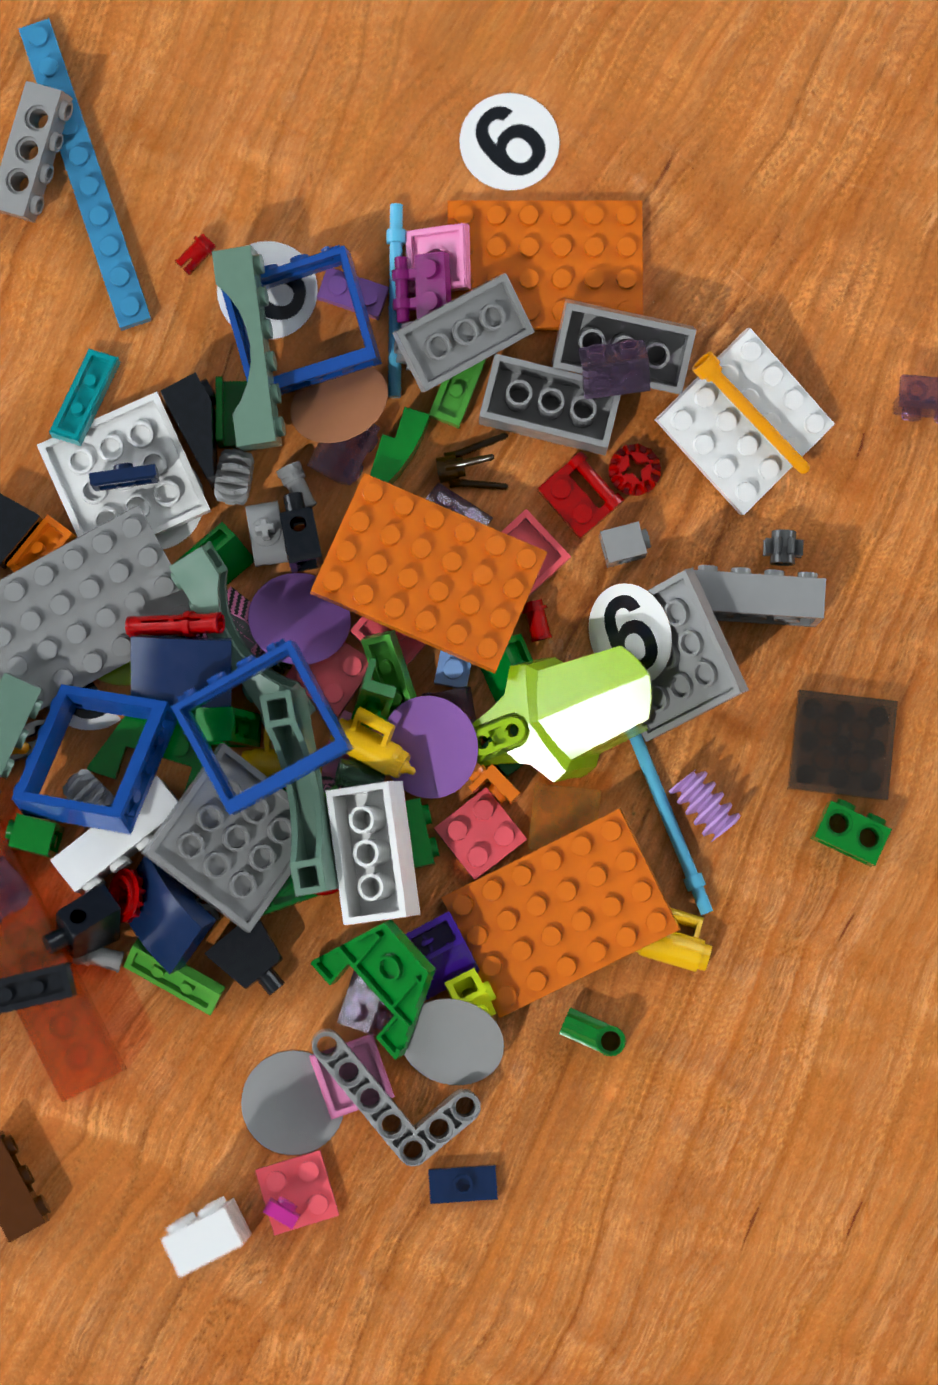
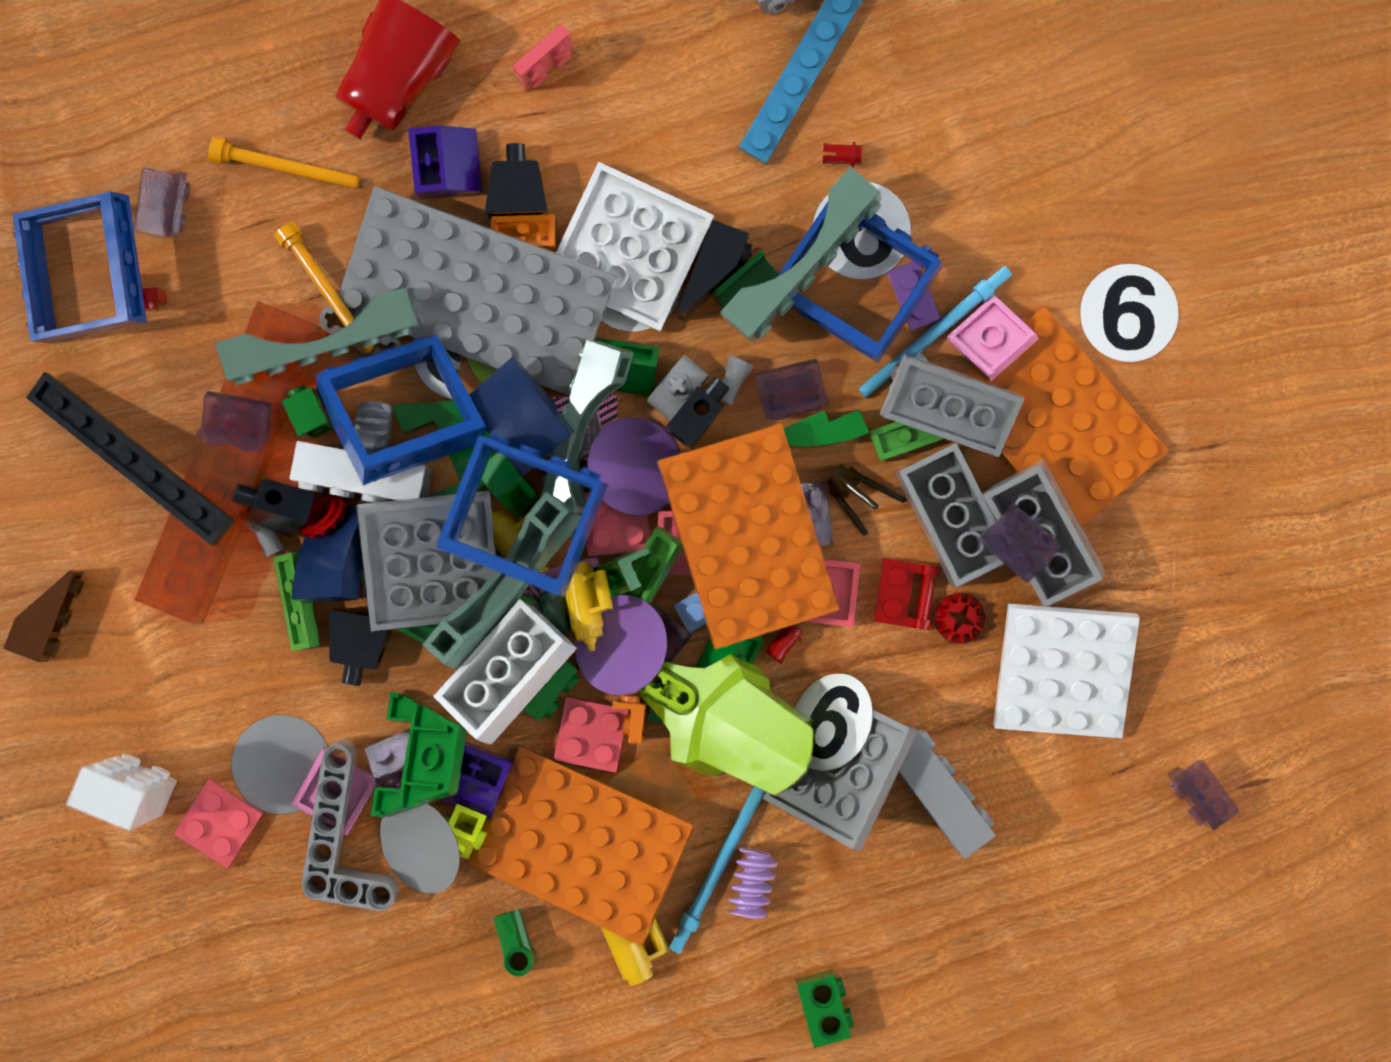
camera: 50 degrees right, 5 degrees up
(84, 397) = (664, 166): teal tile -> none
(124, 476) = (629, 247): dark blue plate -> none
(184, 624) = (557, 391): red pin -> none
(234, 476) = (698, 328): light grey gear -> none
(282, 1211) = (191, 828): dark pink plate -> none
(340, 406) = (818, 361): nougat sticker -> none
(431, 283) = (969, 349): magenta plate -> none
(463, 1184) = (326, 938): dark blue plate -> none
(624, 544) = (896, 658): light grey brick -> none
(709, 369) = (1080, 614): light orange piece -> none
(783, 547) = (994, 779): dark grey gear -> none
(842, 745) = (884, 946): clear smoke plate -> none

